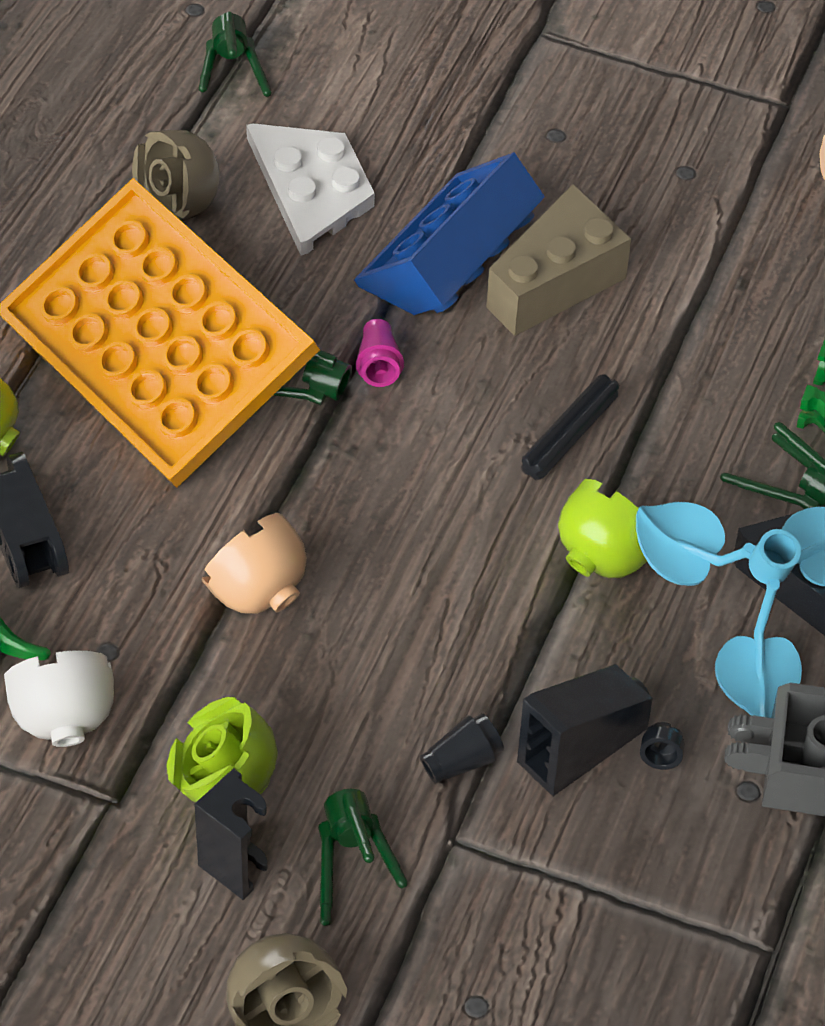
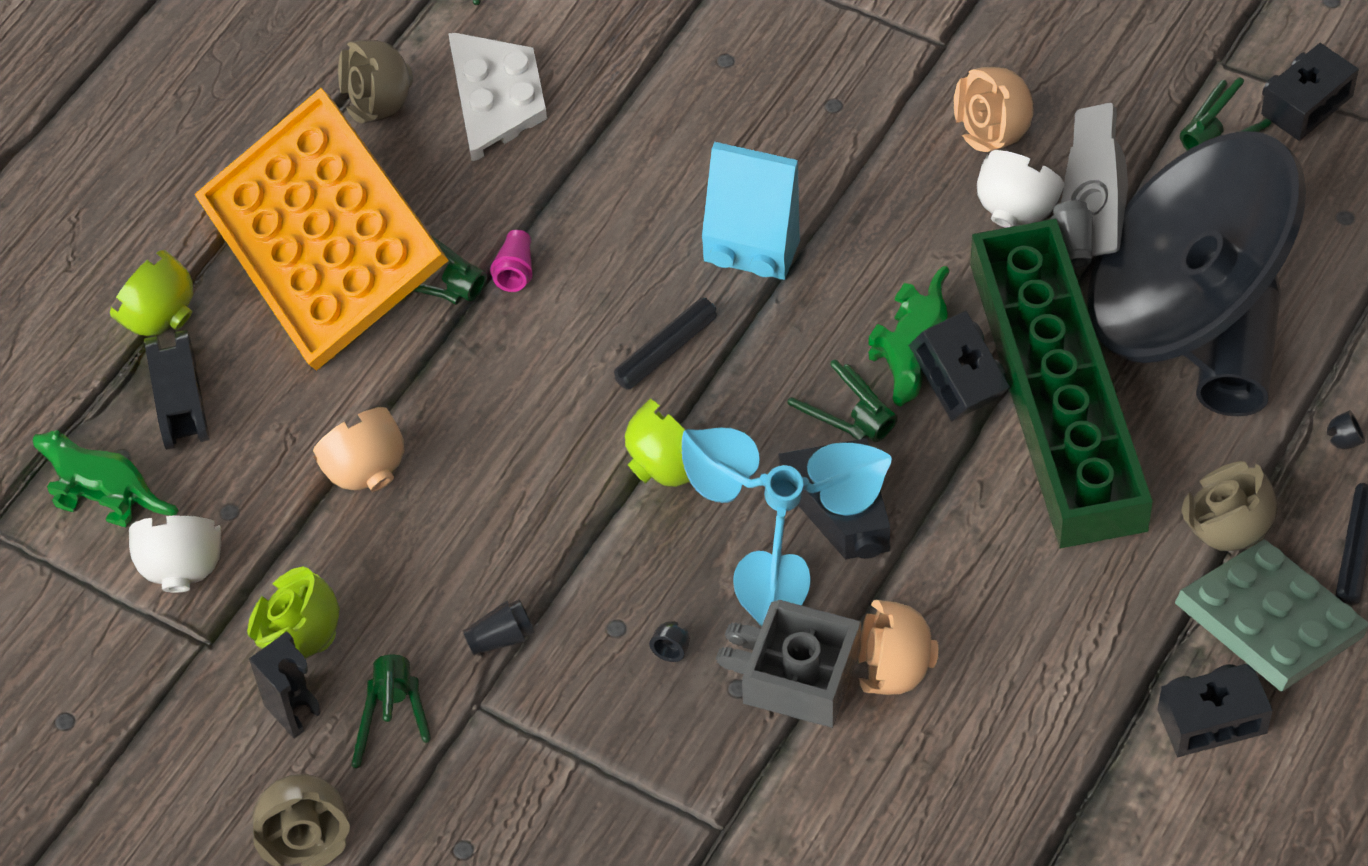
camera: 15 degrees right, 5 degrees up
(453, 236) = (604, 156): blue slope -> none
(557, 263) = (673, 191): dark tan wedge -> none
(580, 725) = (601, 616): black slope -> none
(643, 274) = (751, 211): none -> medium azure slope

